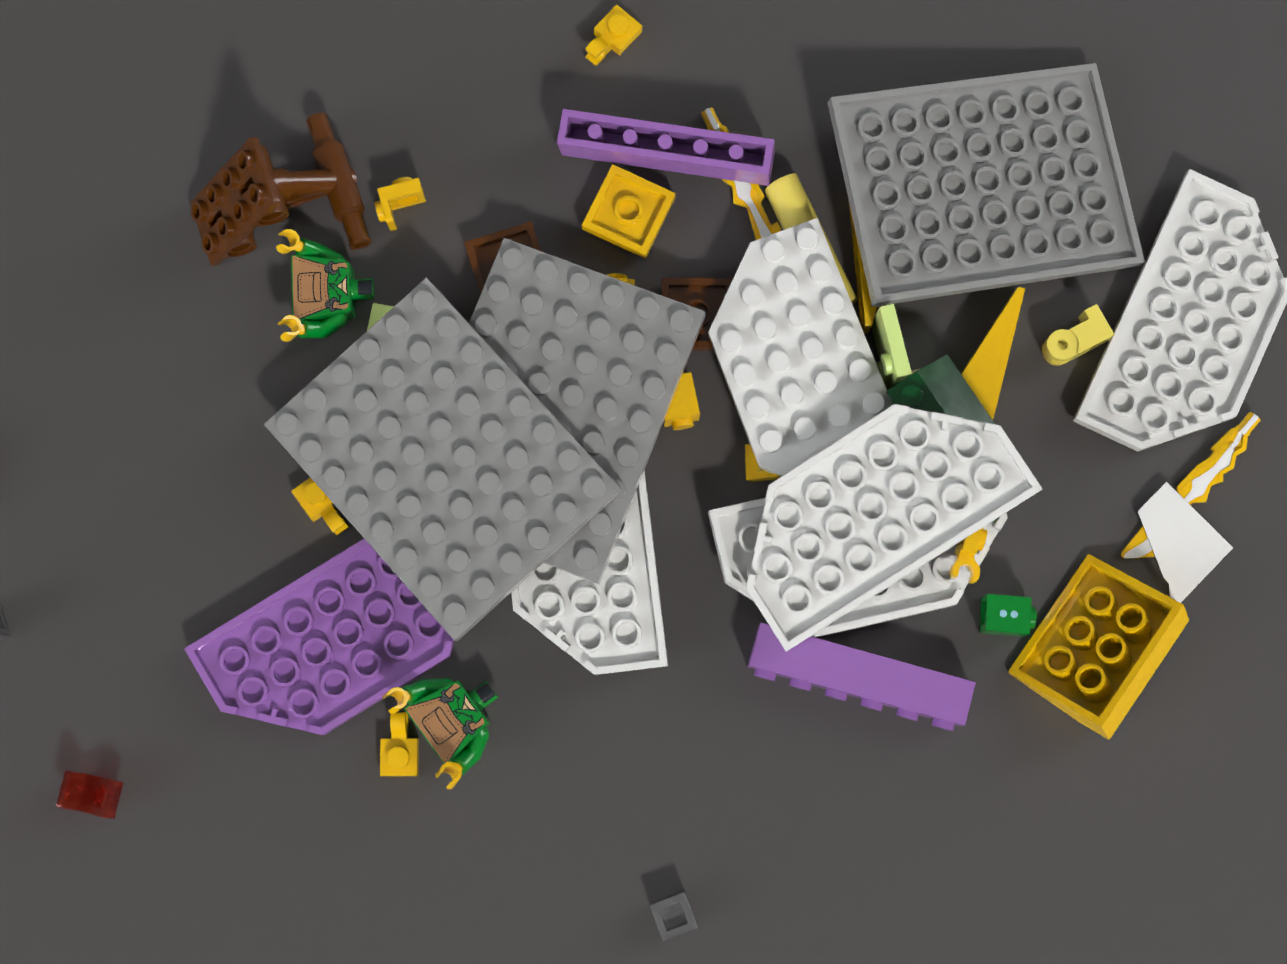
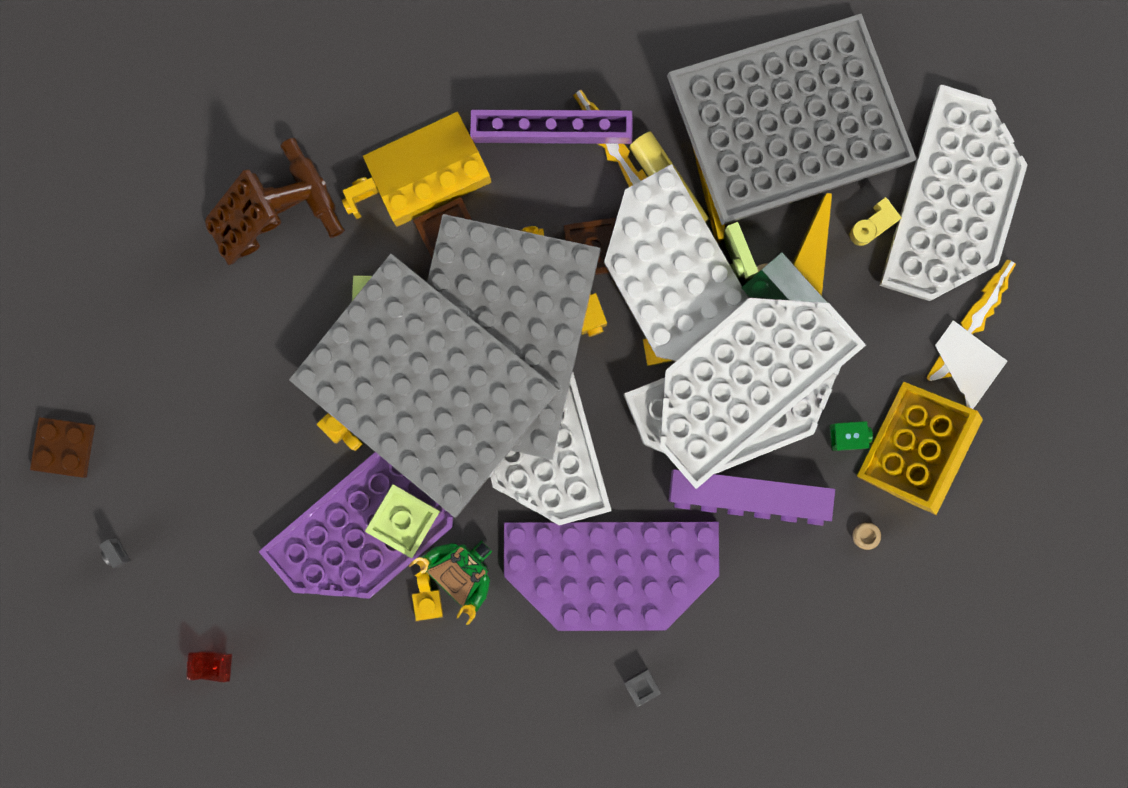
camera: 10 degrees left, 5 degrees up
(321, 289) = (313, 271): torso -> none
(383, 636) = (402, 521): none -> yellowish green plate
(493, 180) = (427, 169): none -> yellow slope
(613, 33) = (498, 43): yellow plate -> none
(628, 211) = (531, 178): yellow plate -> none
(656, 749) = (611, 571): none -> medium lavender plate
(965, 554) = (815, 399): yellow plate -> none
(1010, 755) = (866, 536): none -> tan tile

